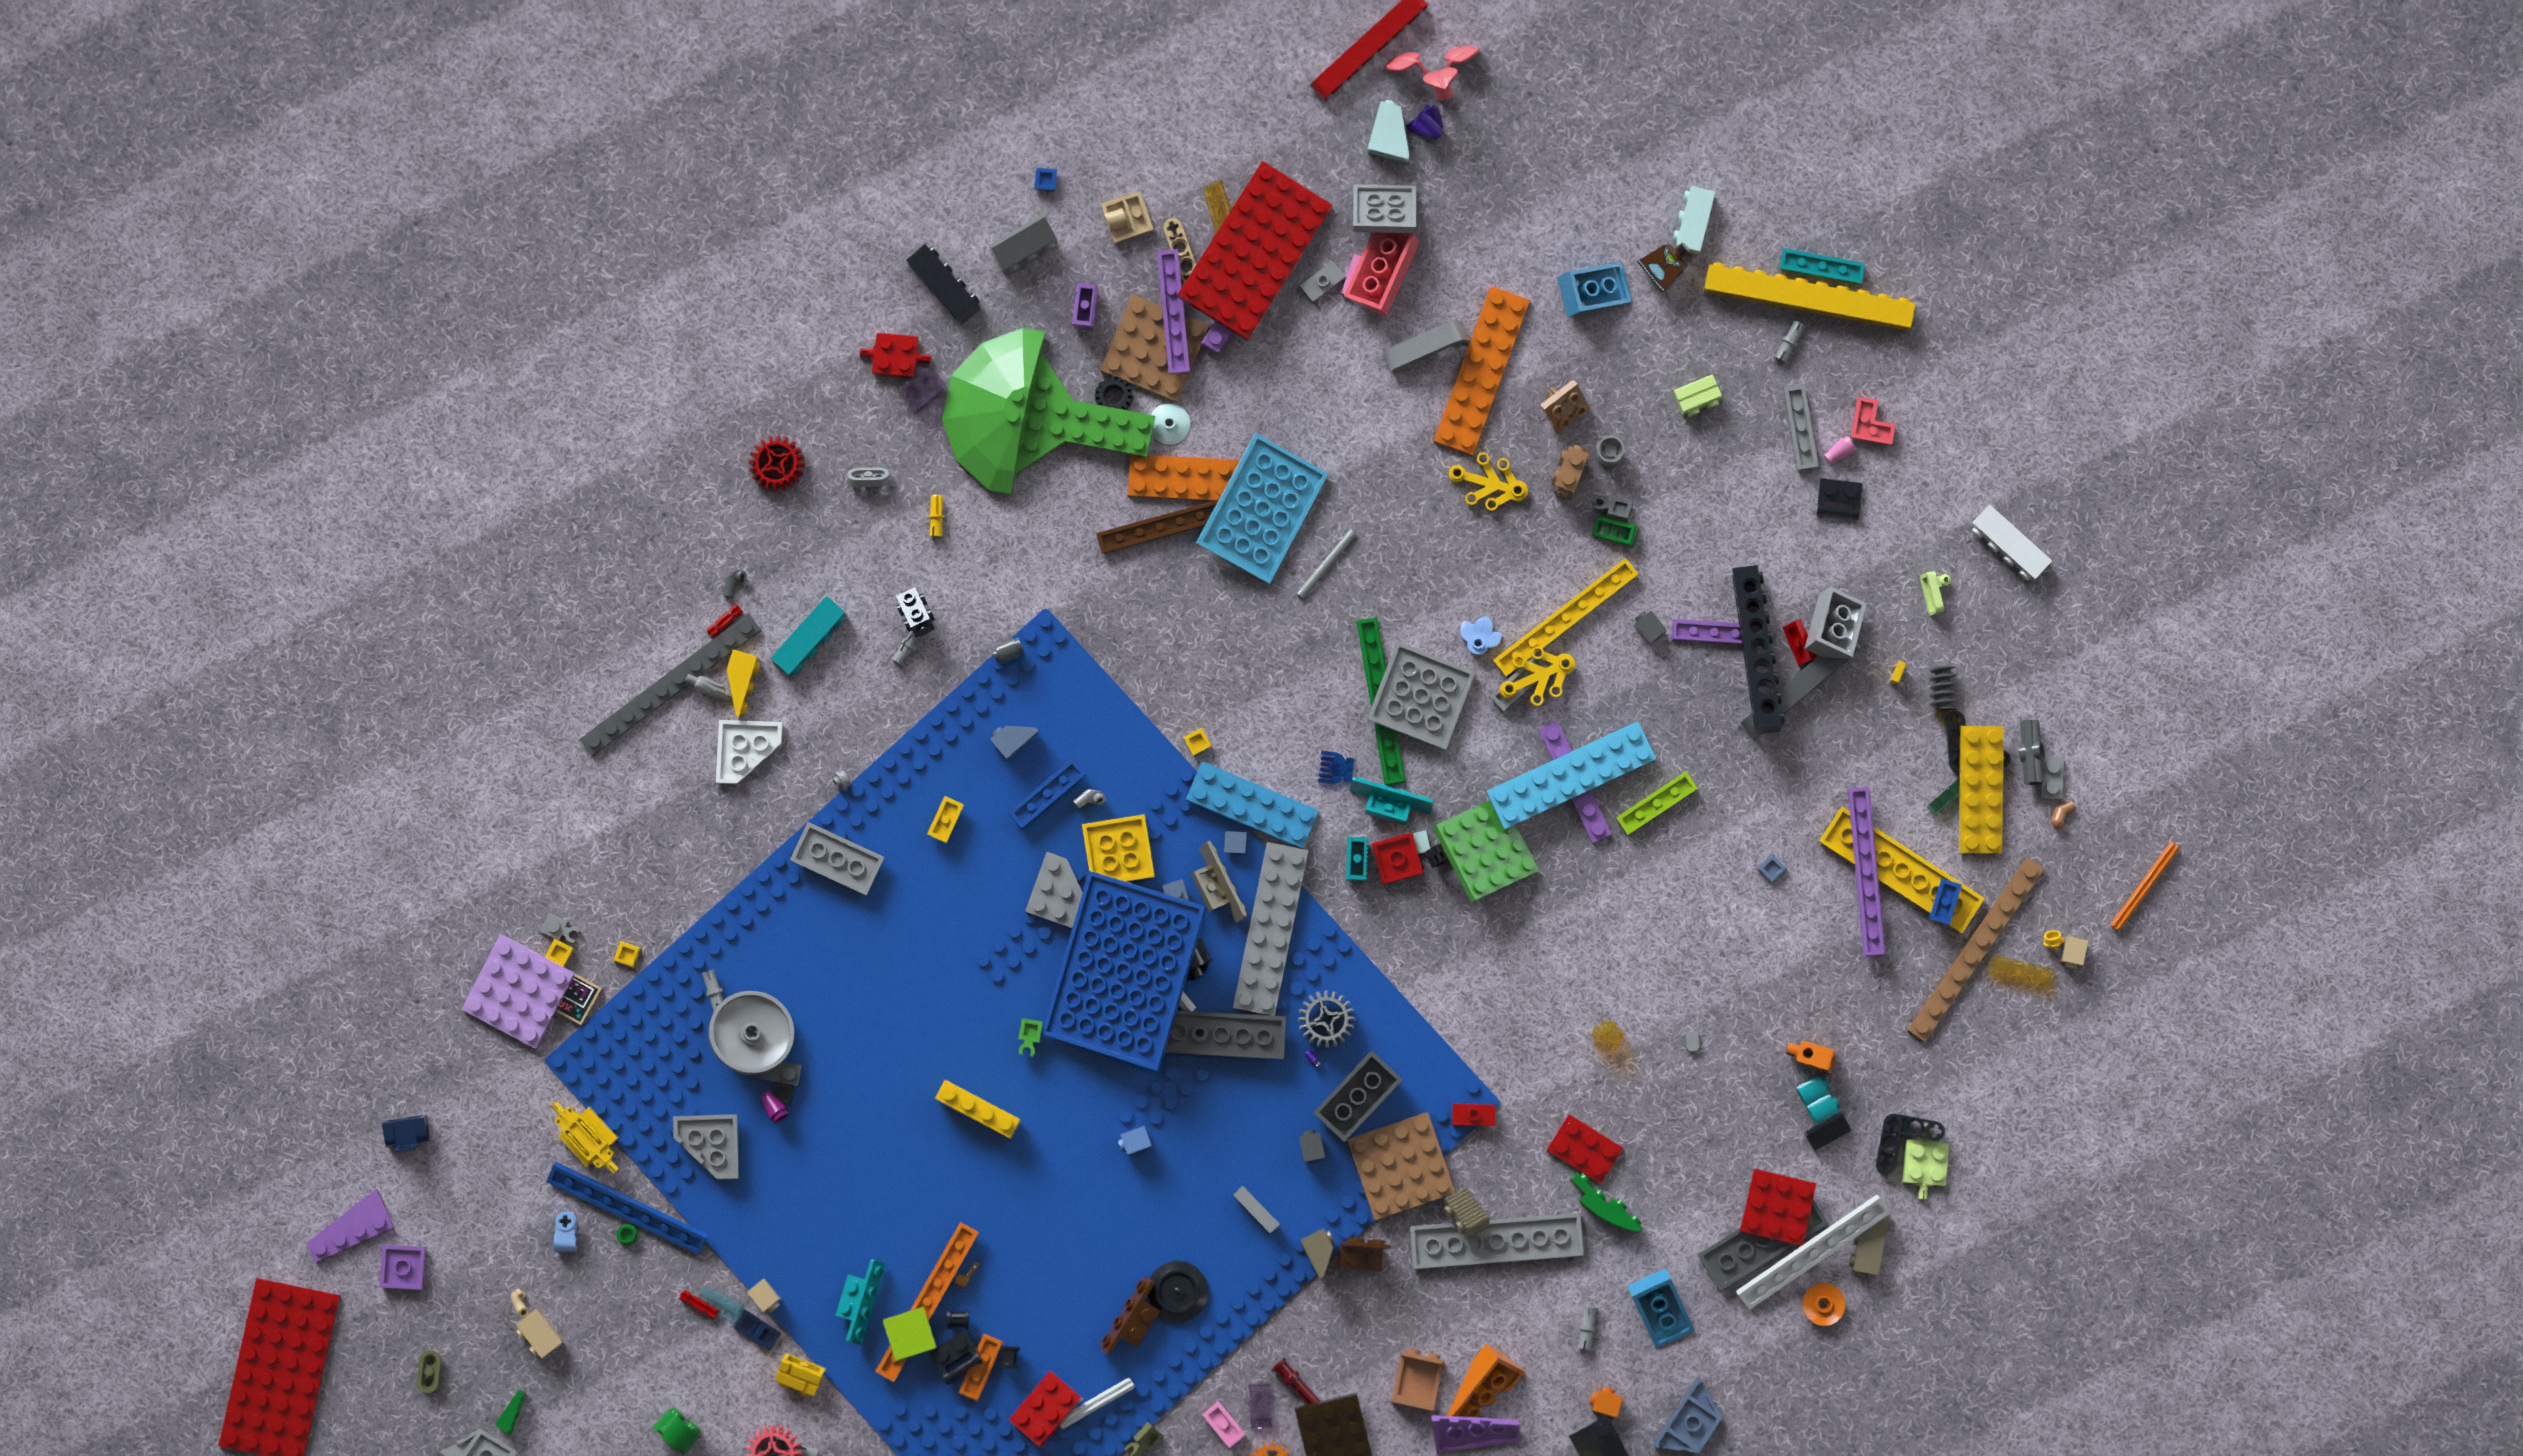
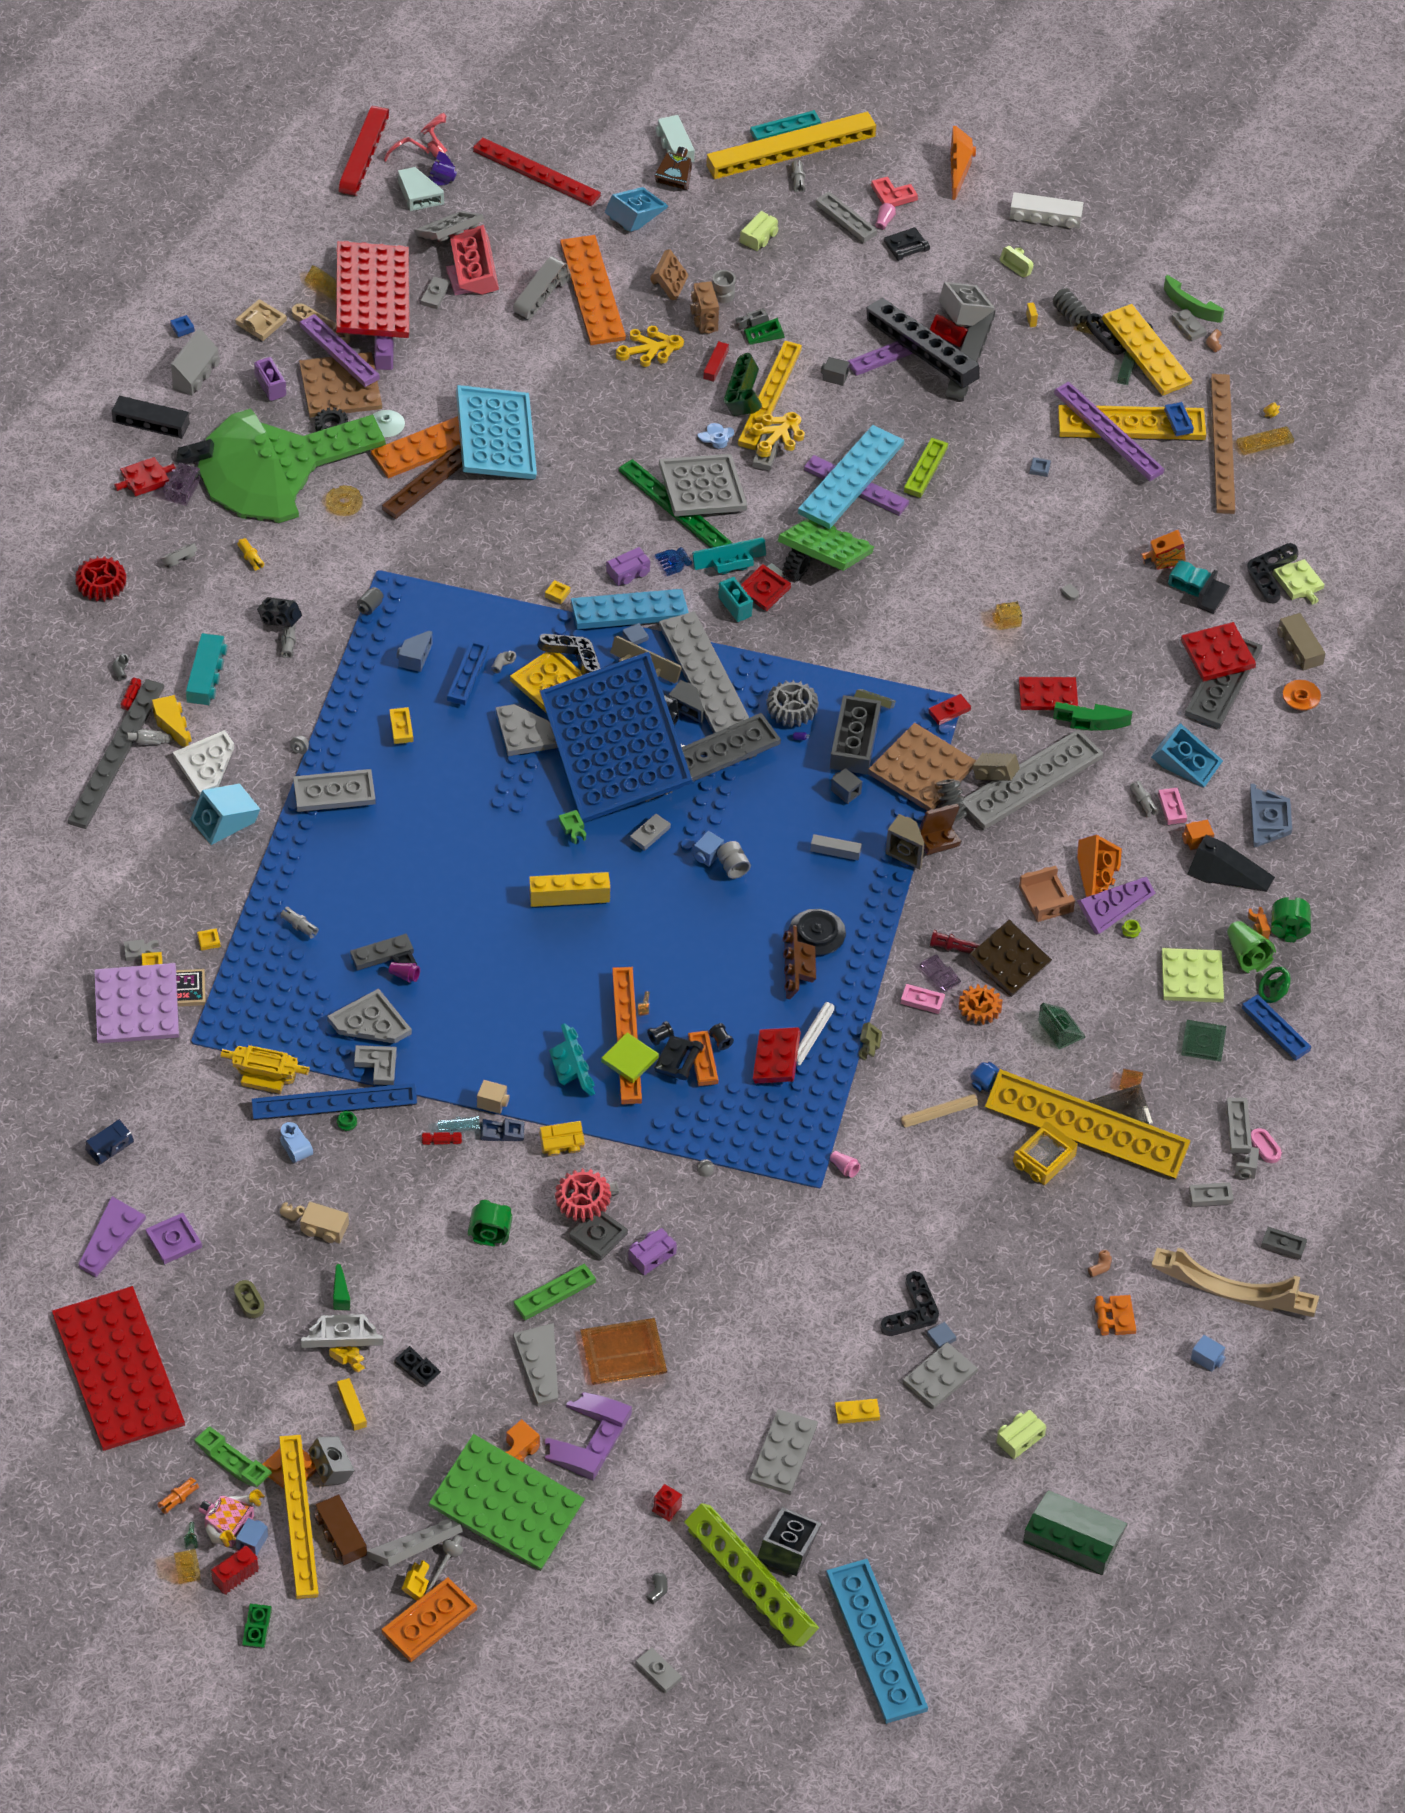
camera: 40 degrees left, 30 degrees down
(694, 1194) = (381, 1059): none -> light grey plate
(725, 821) = (224, 812): none -> medium azure slope
(751, 1032) = (350, 927): light grey dish -> none
(958, 357) = (195, 452): none -> black plate
(1071, 512) = (344, 509): none -> clear yellow tile
(1097, 1084) = (650, 832): none -> light grey plate
(1149, 1169) = (733, 859): none -> light grey wheel
(1164, 828) = (575, 645): none -> black beam
(1230, 954) = (688, 700): none -> dark grey slope
(1284, 753) = (628, 566): none -> medium lavender brick
(1326, 563) = (569, 447): light grey bar -> none
(1398, 1225) = (952, 795): none -> dark grey piece
(1408, 1061) = (885, 702): none -> olive plate
(1527, 176) = (537, 171): none -> red plate
(1541, 541) = (716, 361): none -> red piece
(1547, 592) = (740, 396): none -> dark green beam
(1607, 1354) = (1172, 806): none -> bright pink plate
(1813, 1252) = (1267, 662): white plate -> none
(1975, 416) = (961, 158): none -> orange wedge
(2031, 752) = (1163, 313): dark grey piece -> none
(2073, 952) = (1292, 408): tan brick -> none
(2082, 777) = (1208, 311): none -> bright green slope
(2145, 886) = (1306, 345): orange axle -> none

